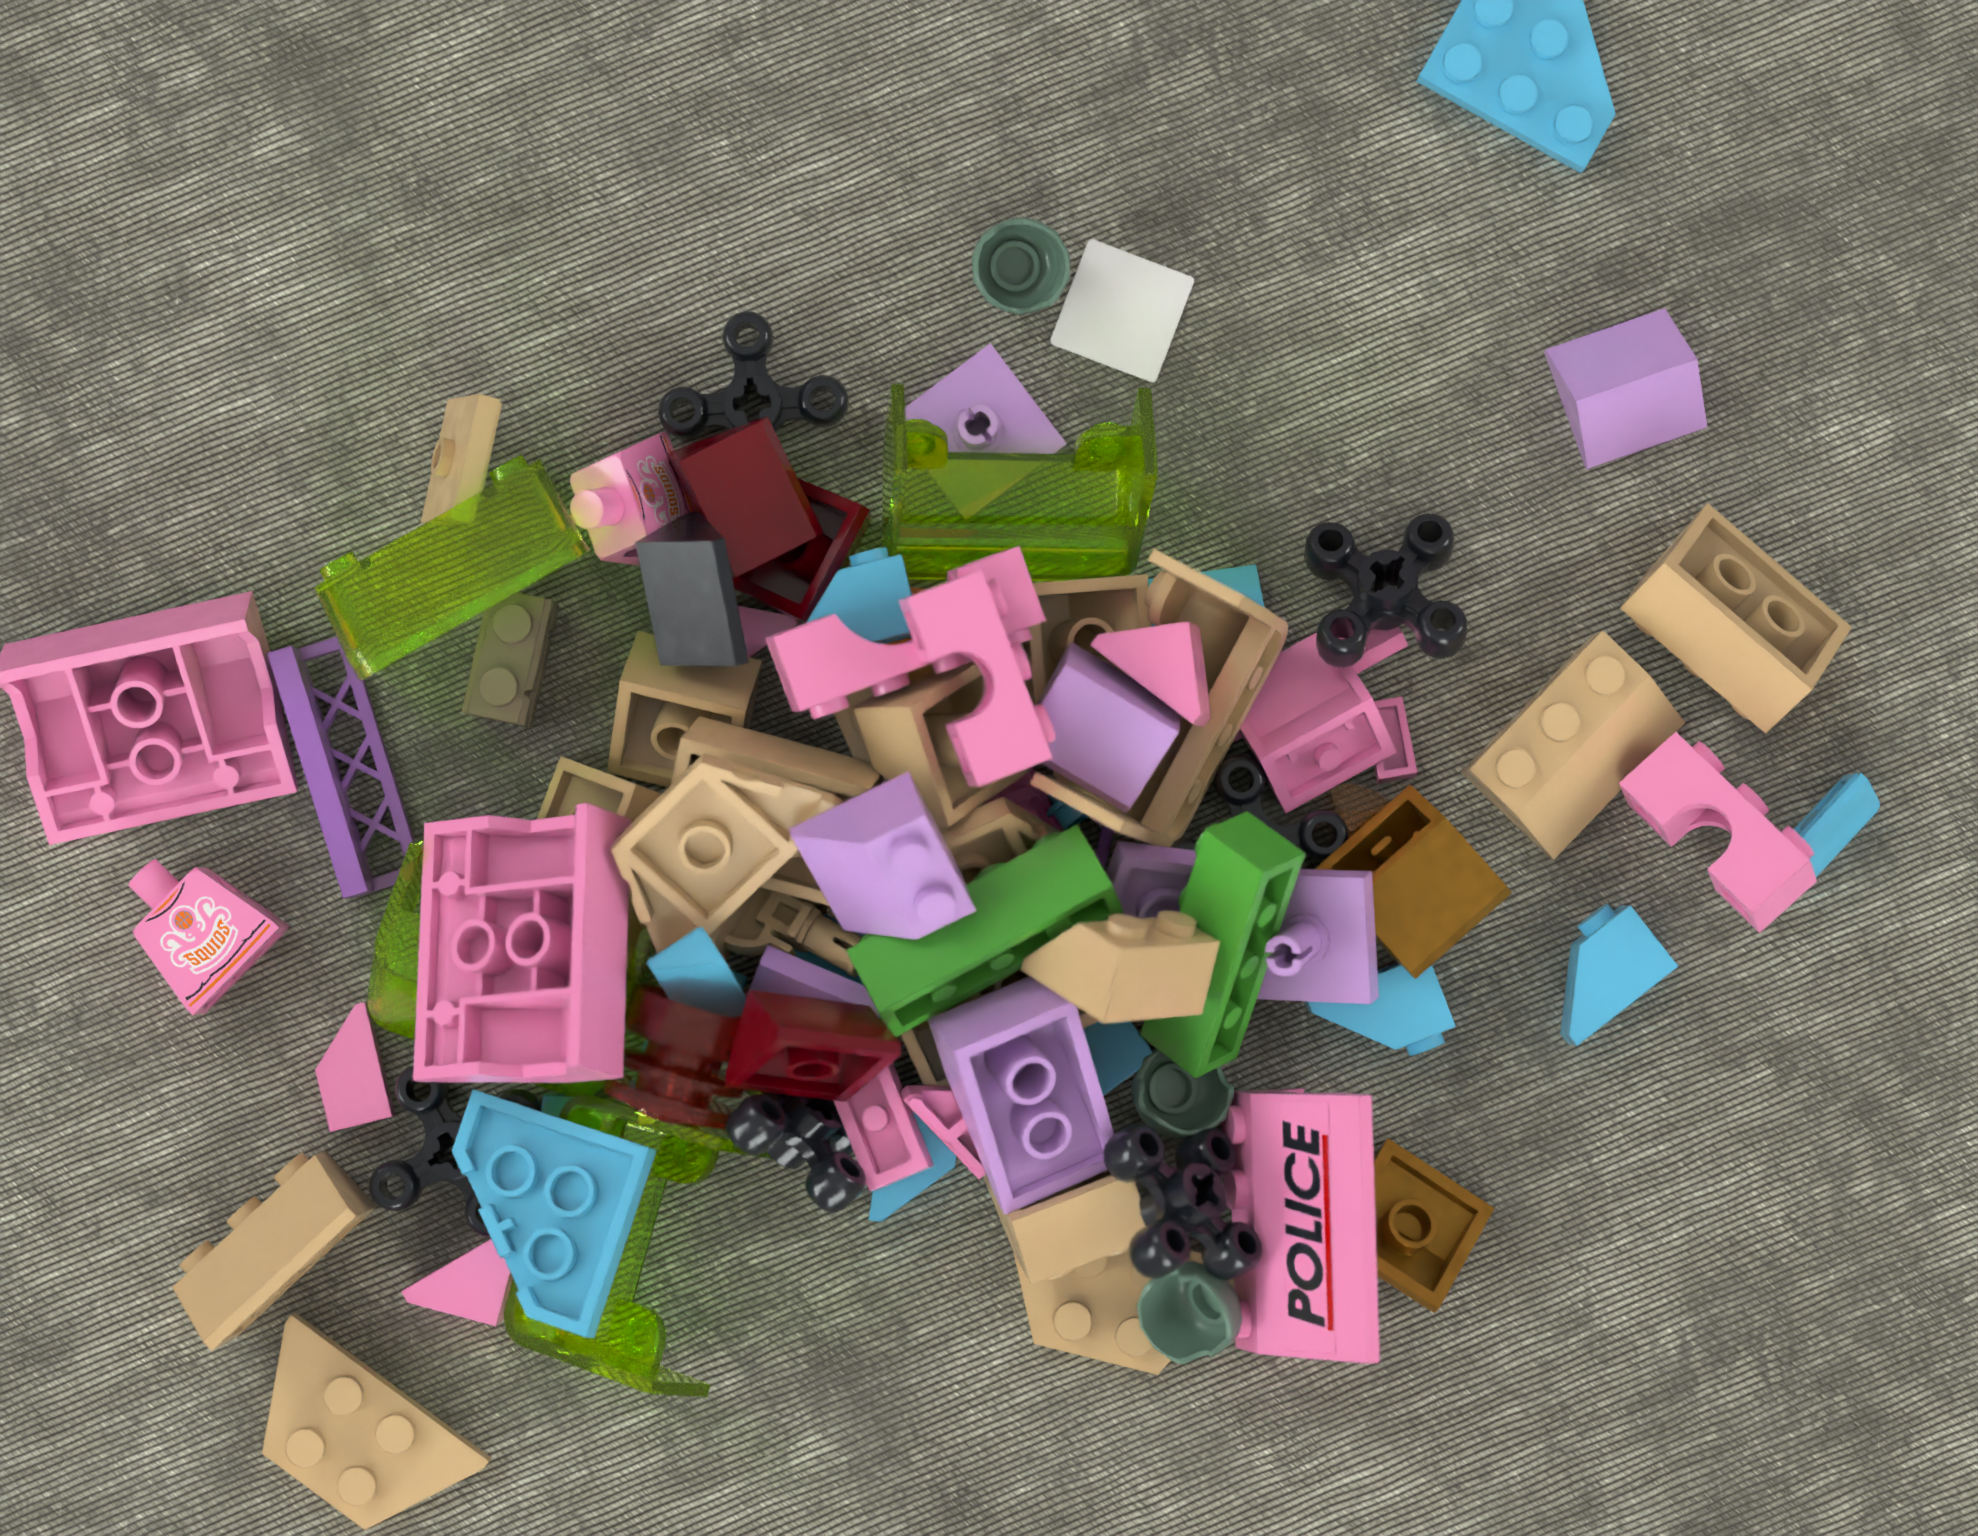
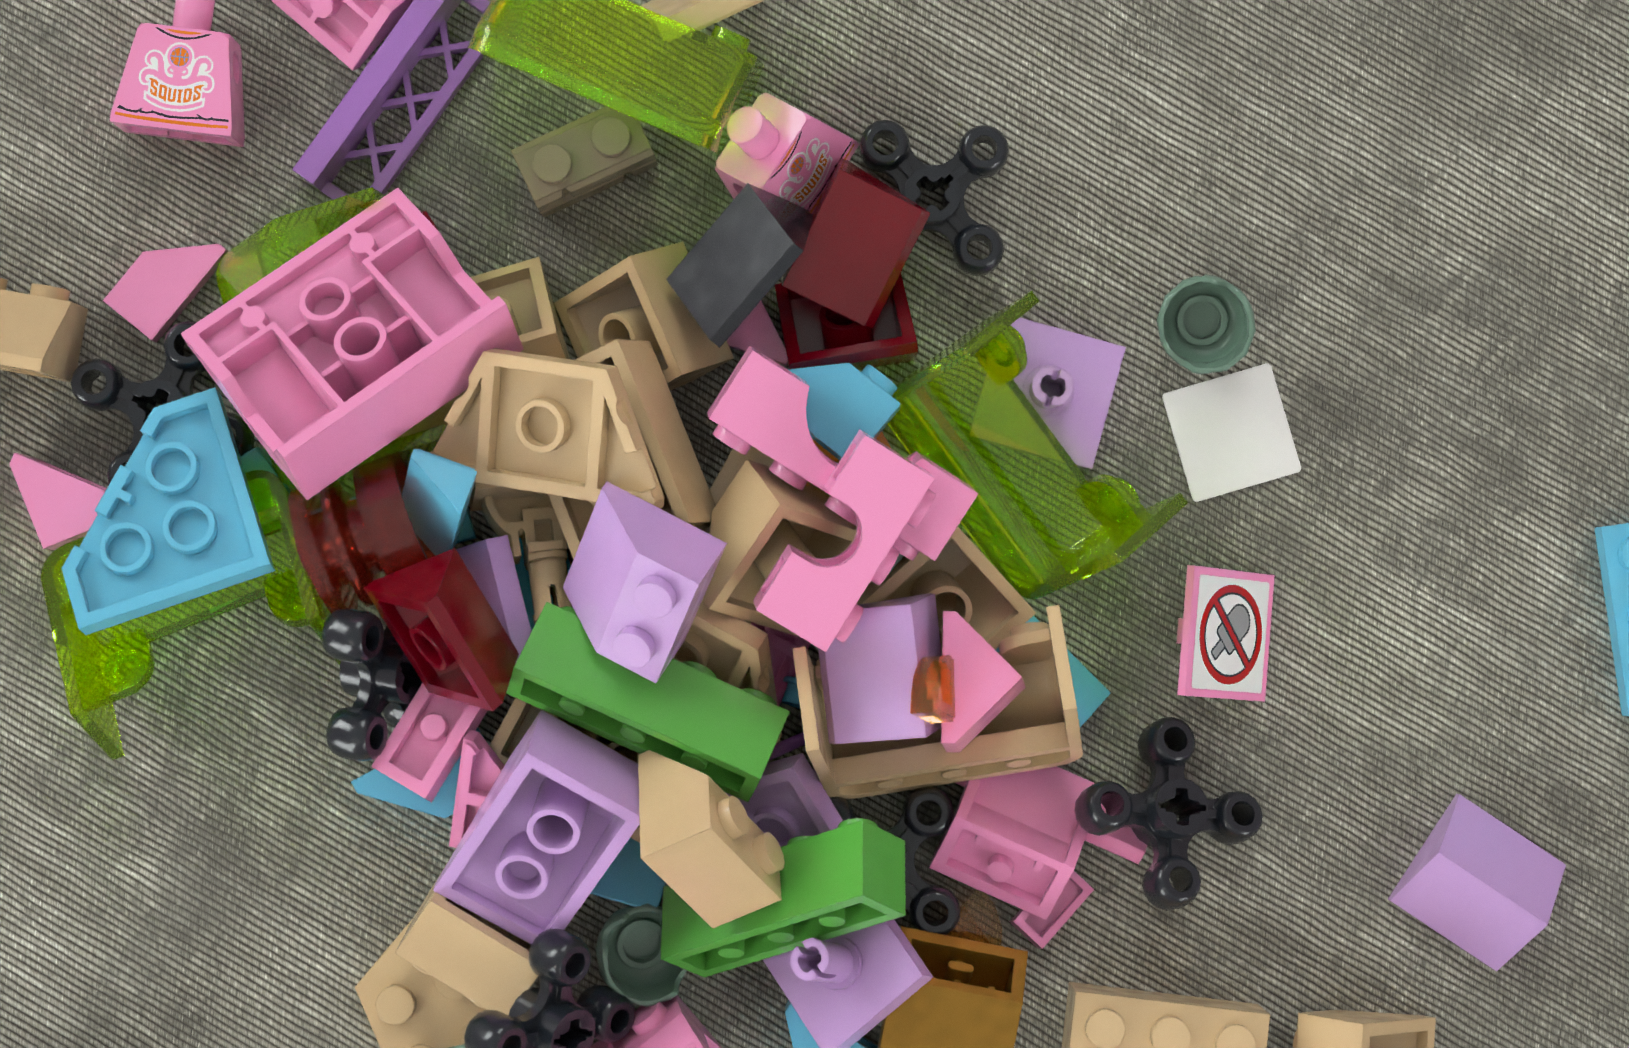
camera: 50 degrees right, 0 degrees up
(1146, 697) = (934, 689): none -> clear orange tile
(1277, 437) = (1225, 634): none -> piece

